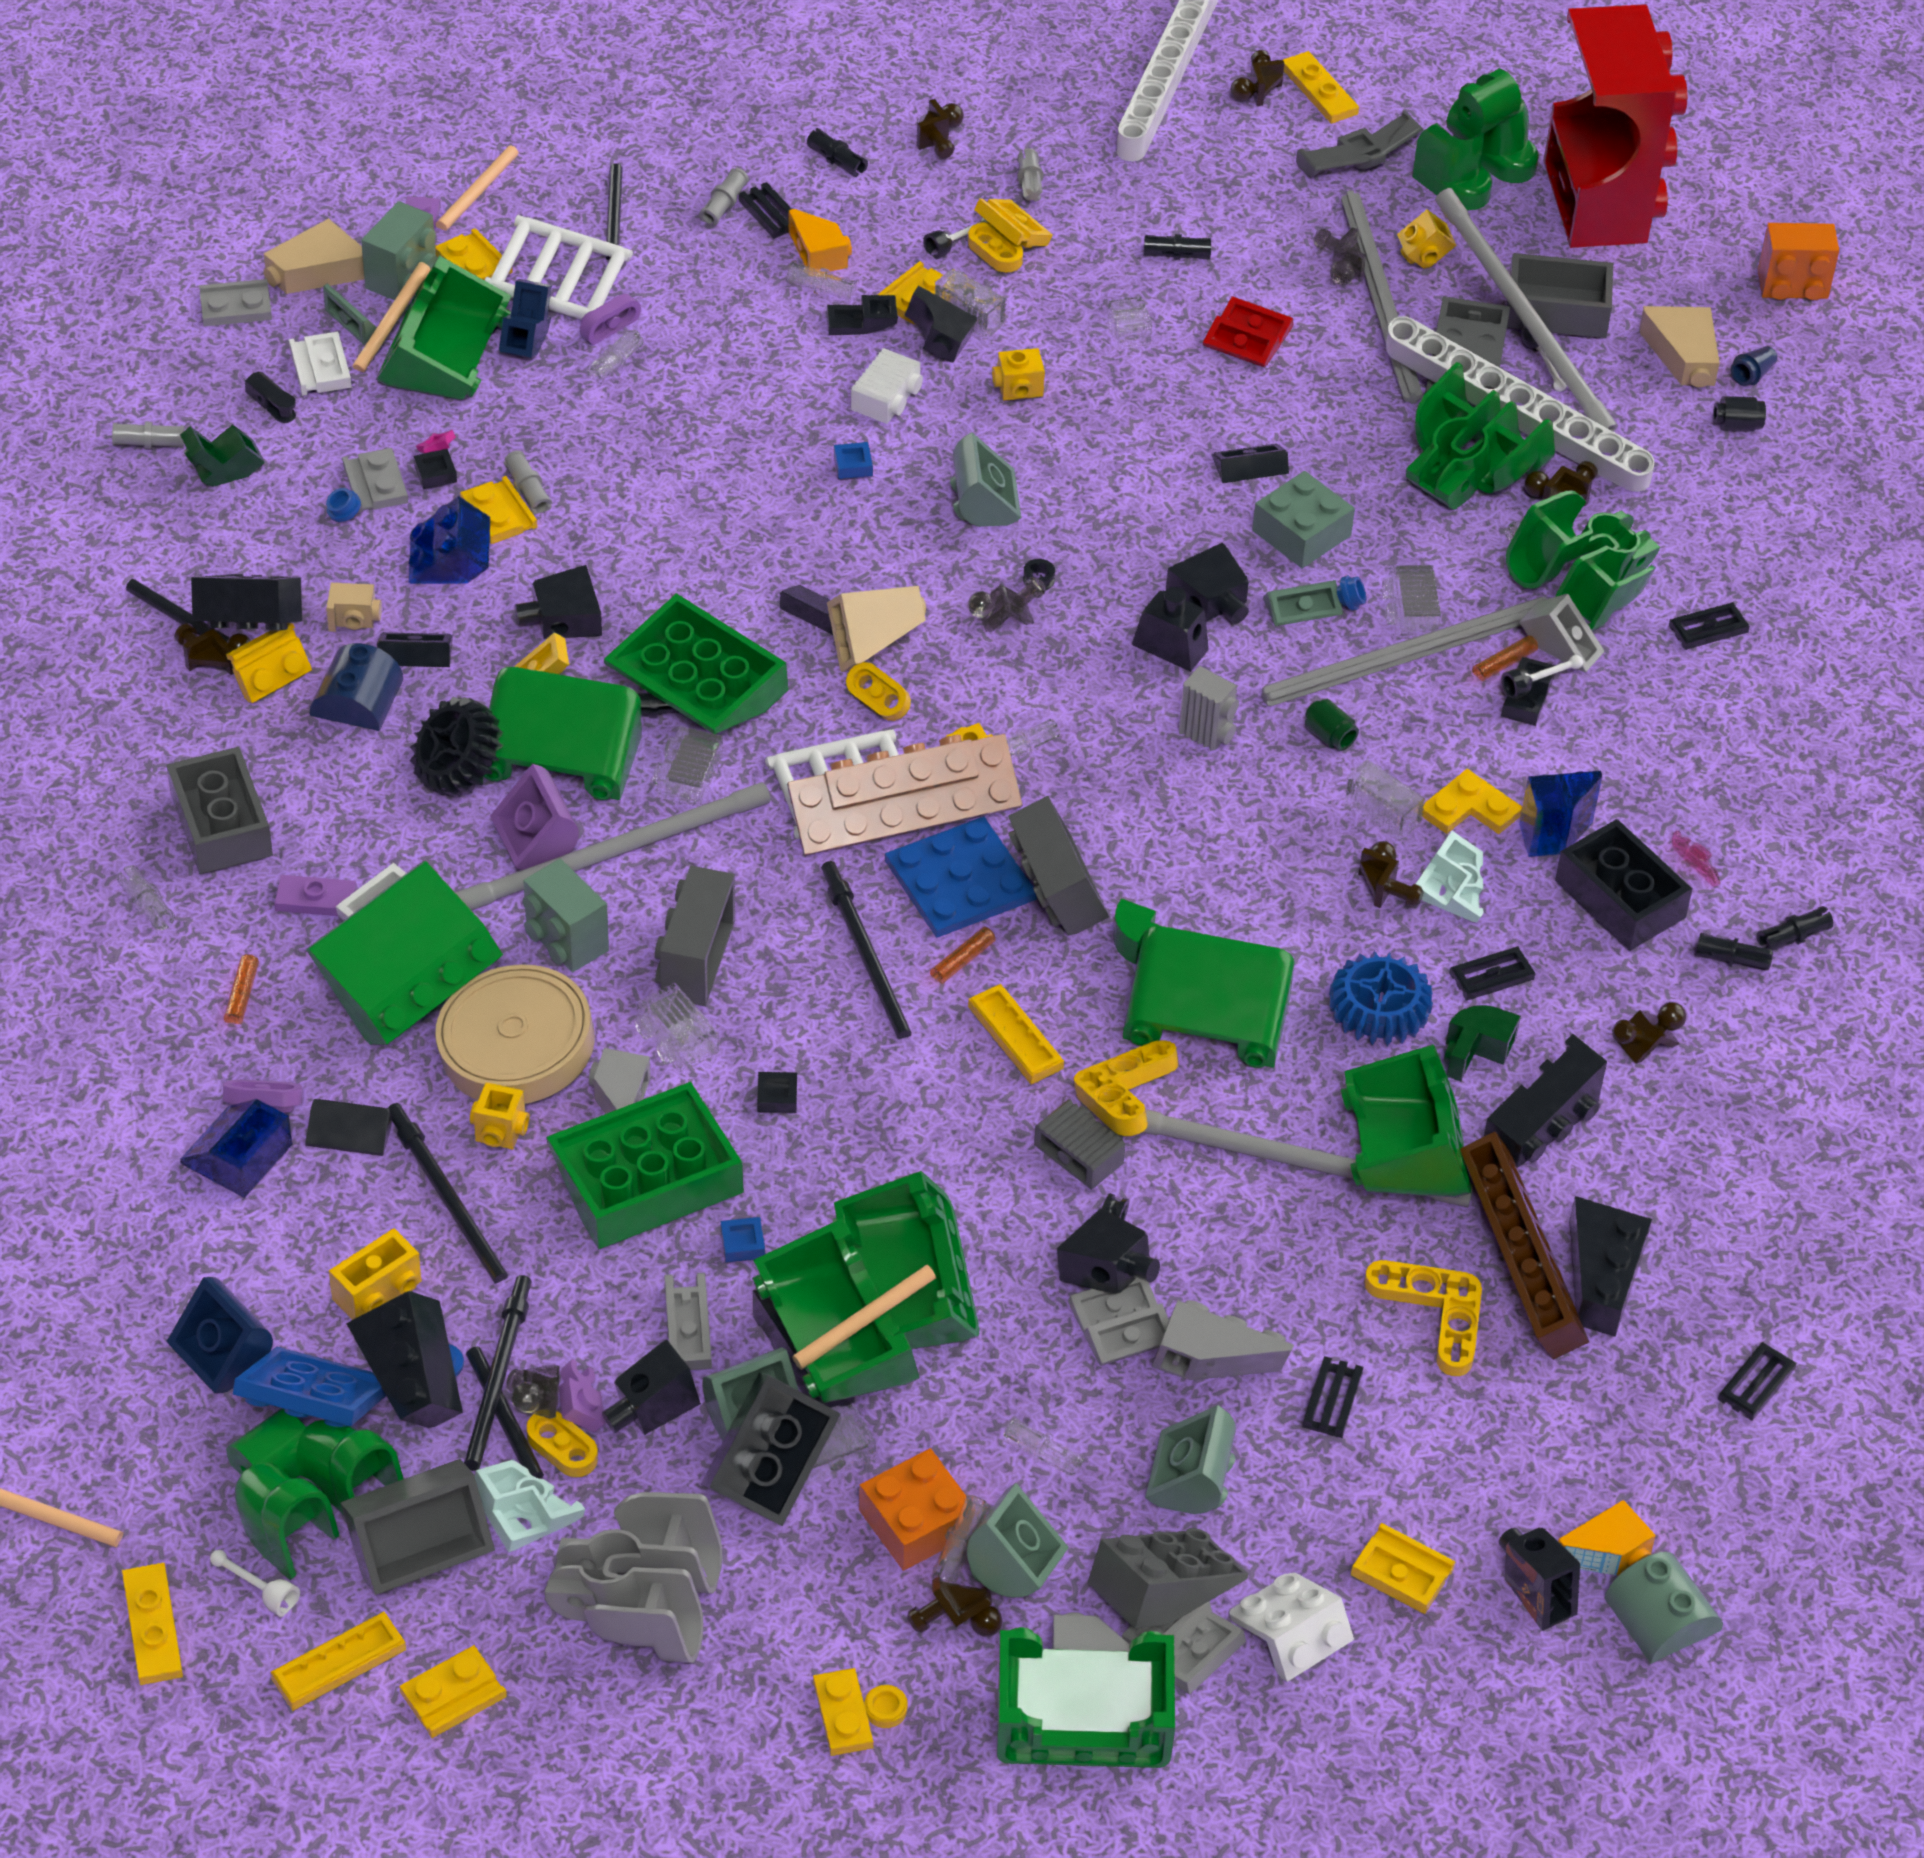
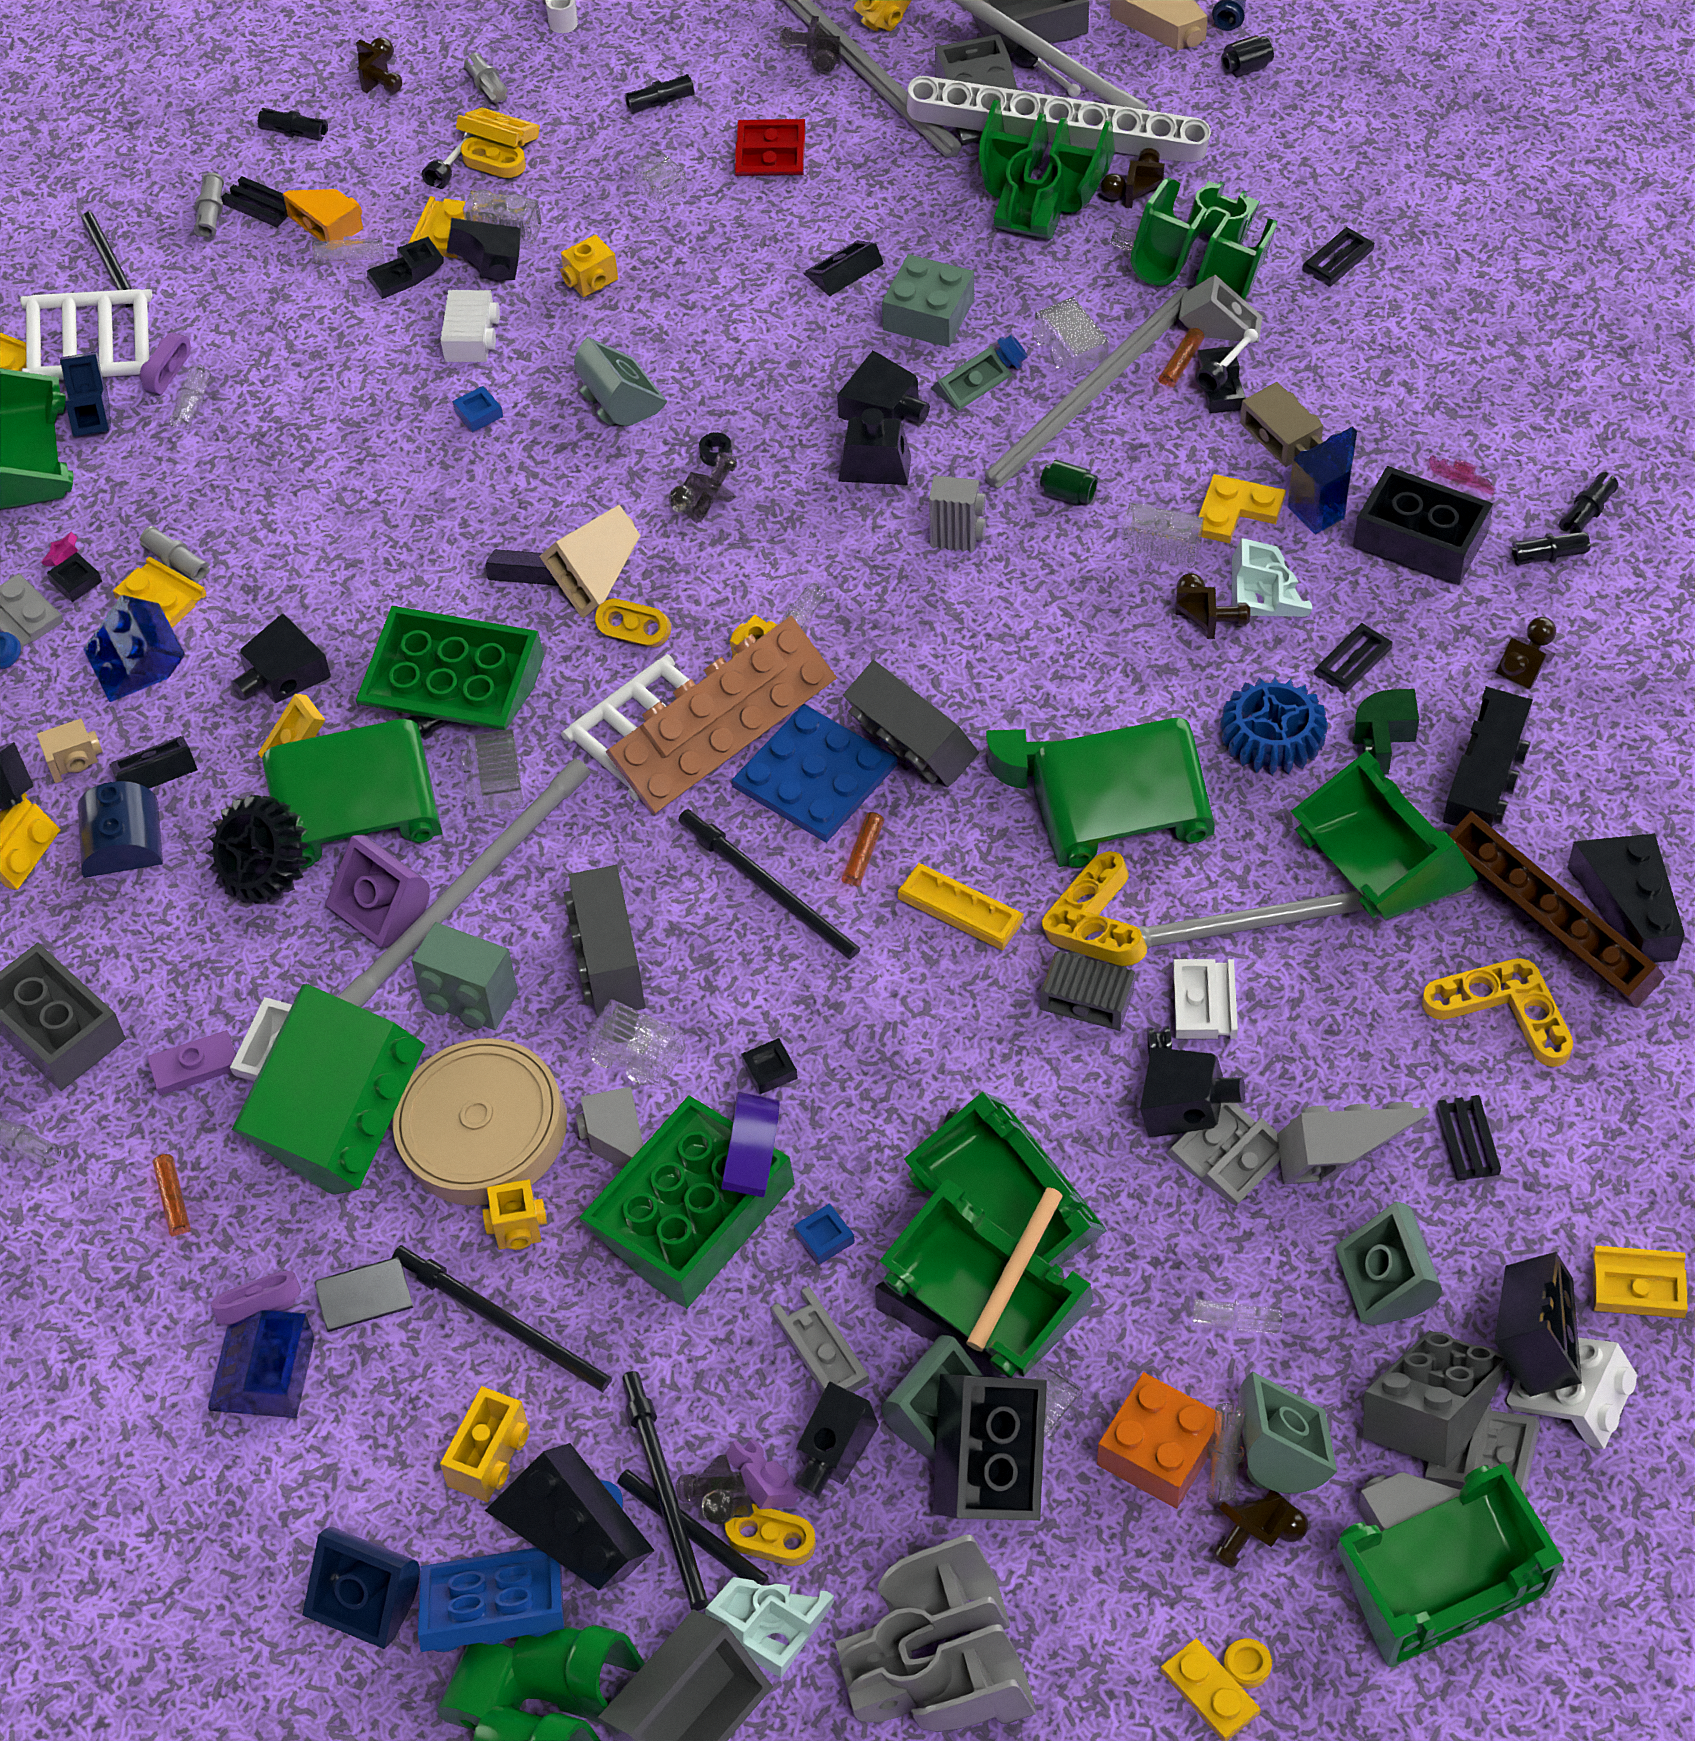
camera: 20 degrees left, 5 degrees up
(715, 1135) = (751, 1144): none -> dark purple slope
(1176, 1192) = (1204, 999): none -> white plate
(1283, 1555) = (1539, 1325): none -> black wedge
(1555, 743) = (1280, 423): none -> dark tan brick

